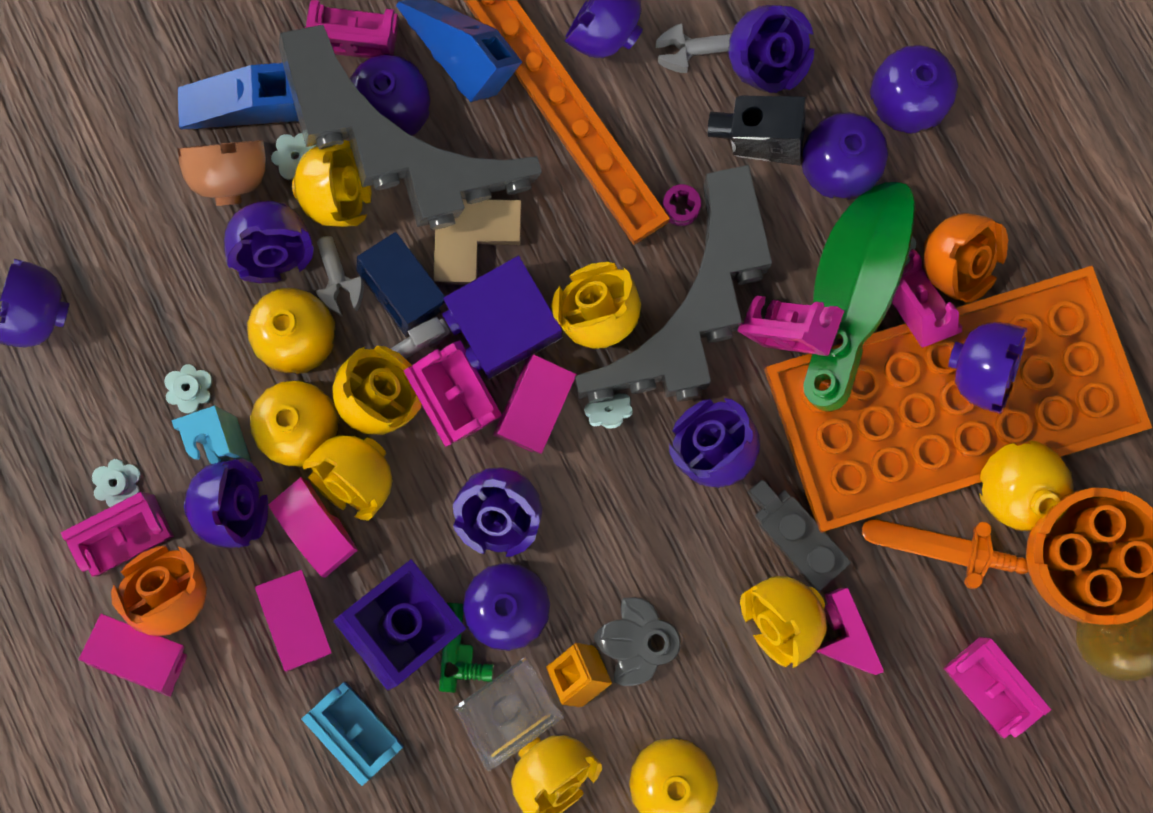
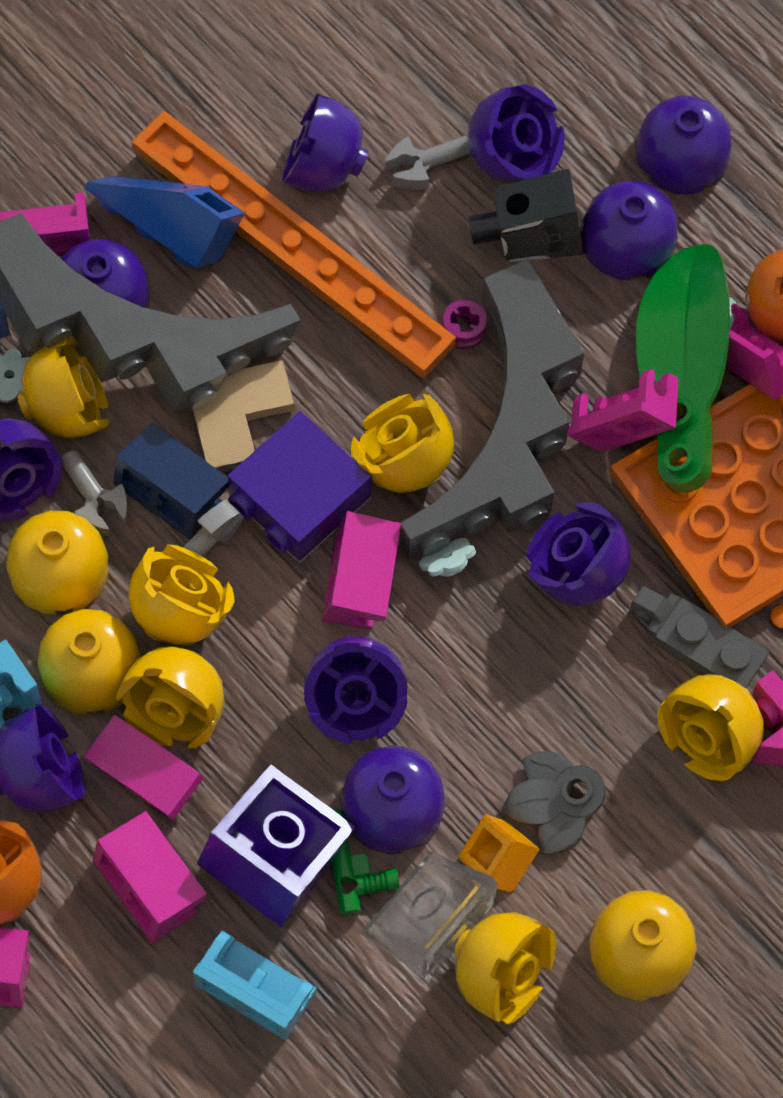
camera: 20 degrees left, 15 degrees down
(452, 393) = (266, 578): dark pink hinge -> none

